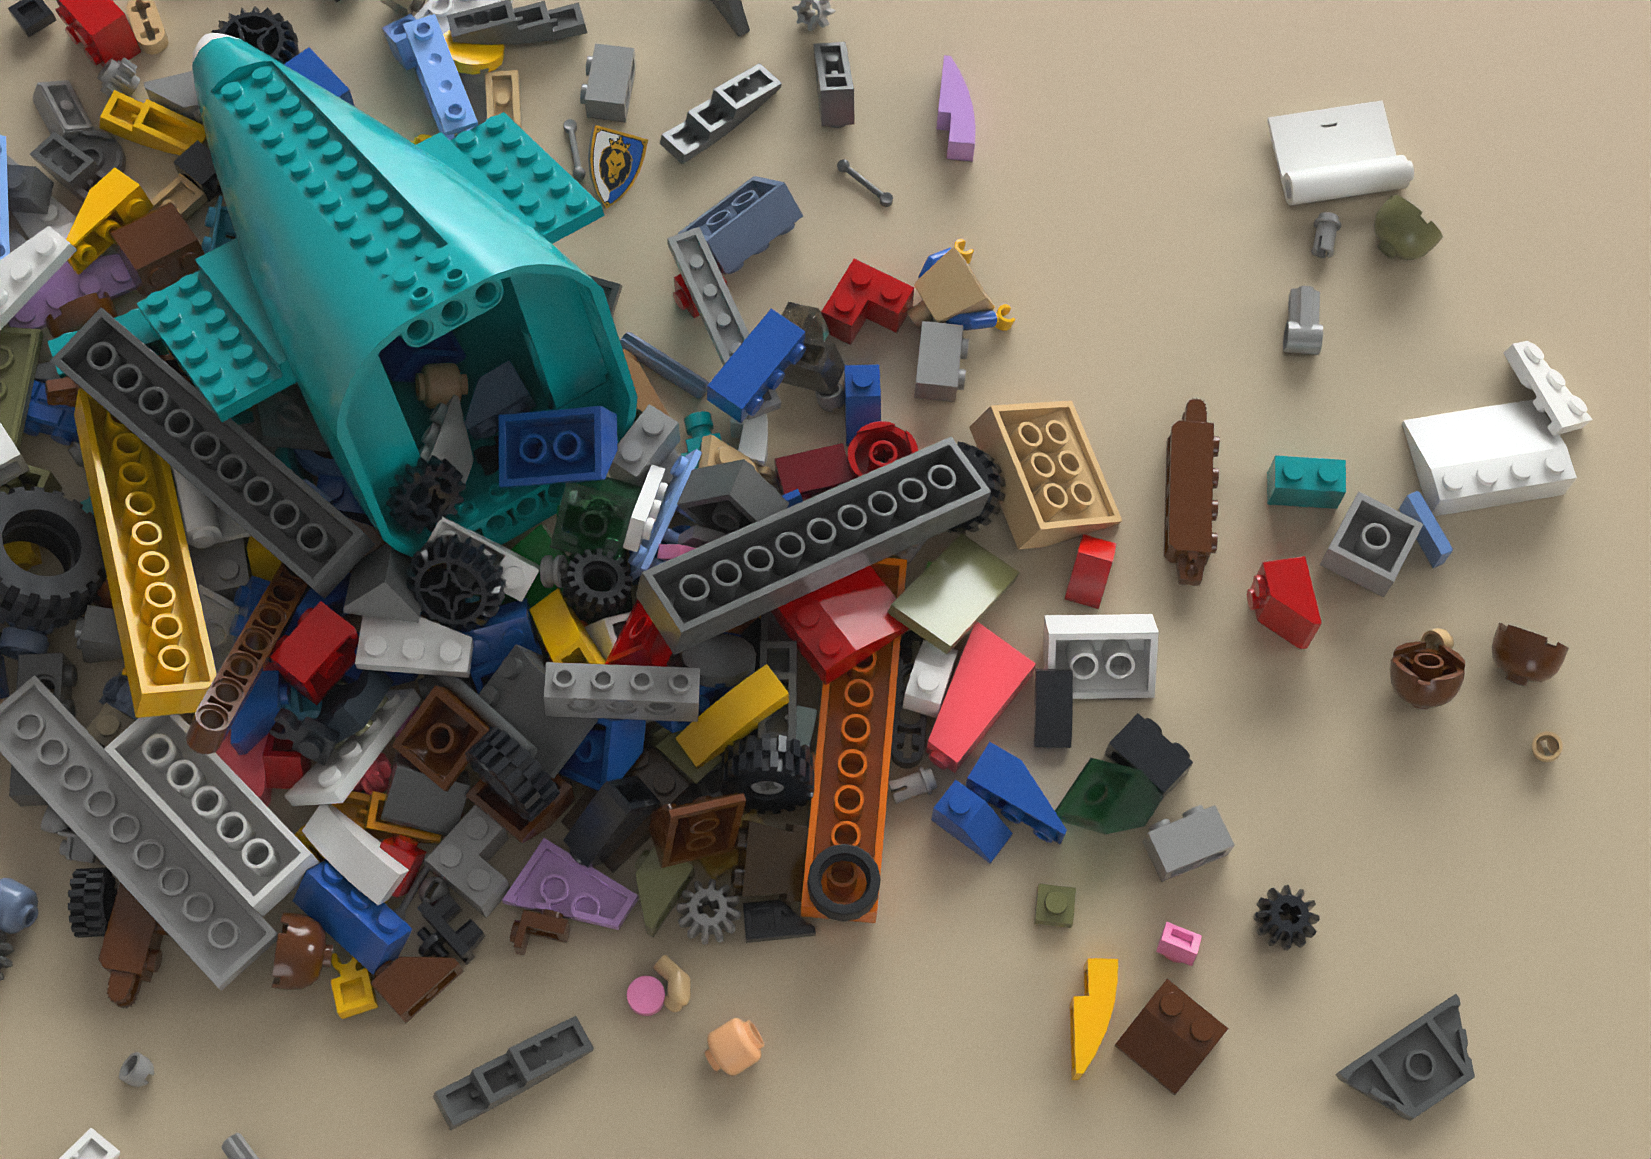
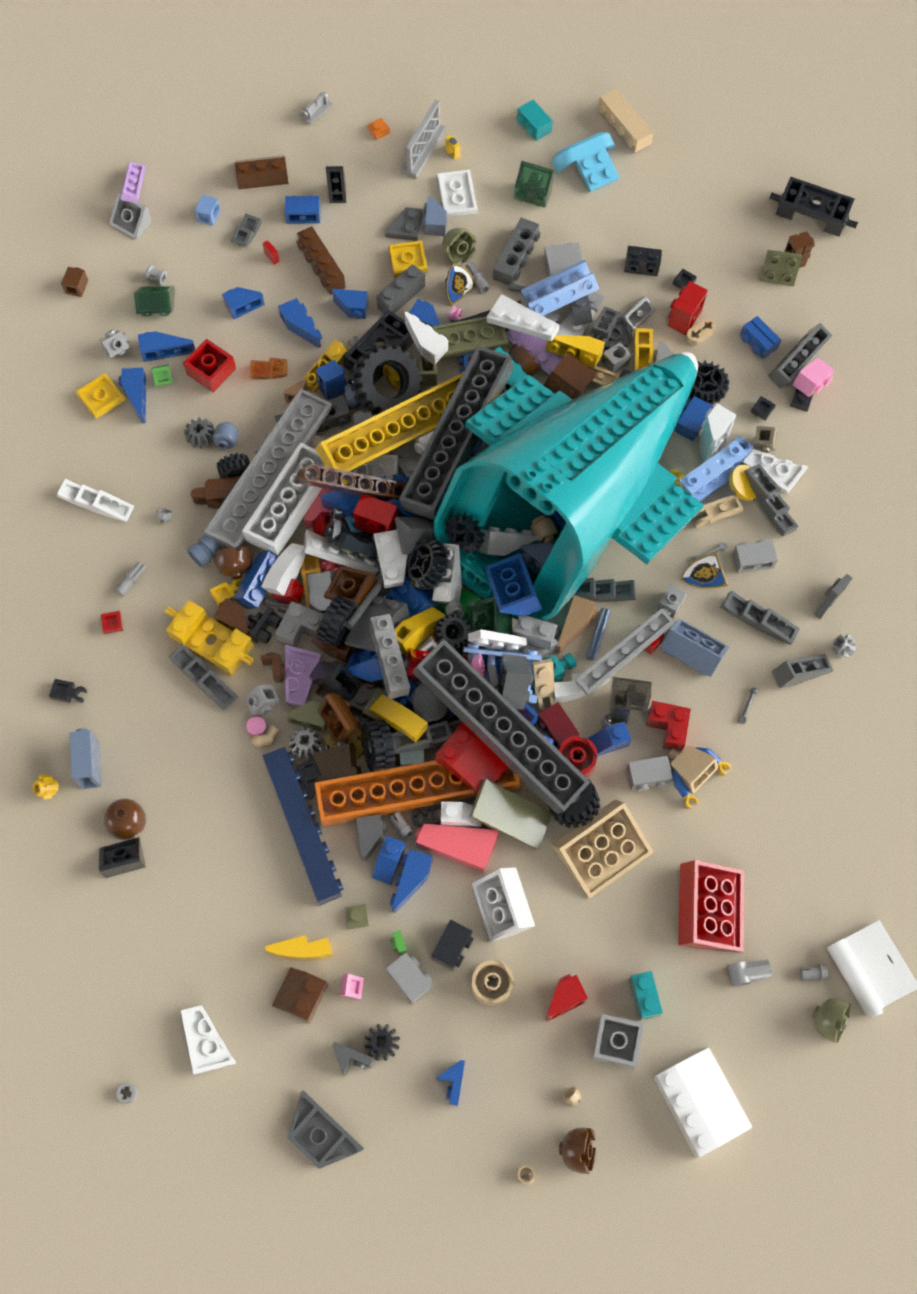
camera: 75 degrees right, 0 degrees up
(118, 77) = (662, 329): light grey gear -> none
(138, 156) = (615, 364): none -> light grey brick
(249, 1007) = (204, 550): none -> sand blue wheel
(368, 58) = (715, 431): none -> white slope
(404, 1064) = (194, 627): none -> yellow brick
(601, 967) = (262, 699): none -> light grey brick
(646, 232) = (672, 600): none -> light grey brick
(734, 1046) = (239, 774): light nougat head -> none
(756, 366) = (600, 673): blue brick -> none
(850, 854) = (325, 783): black tyre -> none
(864, 955) = (302, 826): none -> dark blue brick
(917, 842) = (370, 834): none -> dark grey slope
(956, 113) = (809, 740): lavender slope -> none
(1053, 708) = (464, 886): black slope -> none
(1090, 571) = (554, 887): red slope -> none
(1109, 798) = (420, 929): clear green slope -> none
(1123, 844) = (398, 943): none -> bright green plate
(1186, 344) = (711, 907): none -> red slope
(1190, 493) = (617, 930): reddish brown hinge -> none
(1242, 692) = (495, 971): none -> tan brick
(1296, 984) = (346, 1054): none -> dark grey slope
(1368, 812) = (453, 1075): none -> blue slope
(1426, 675) = (546, 1090): reddish brown cylinder -> none
(1431, 536) = (640, 1074): medium blue tile -> none
(1552, 396) = (756, 1132): white wing -> none

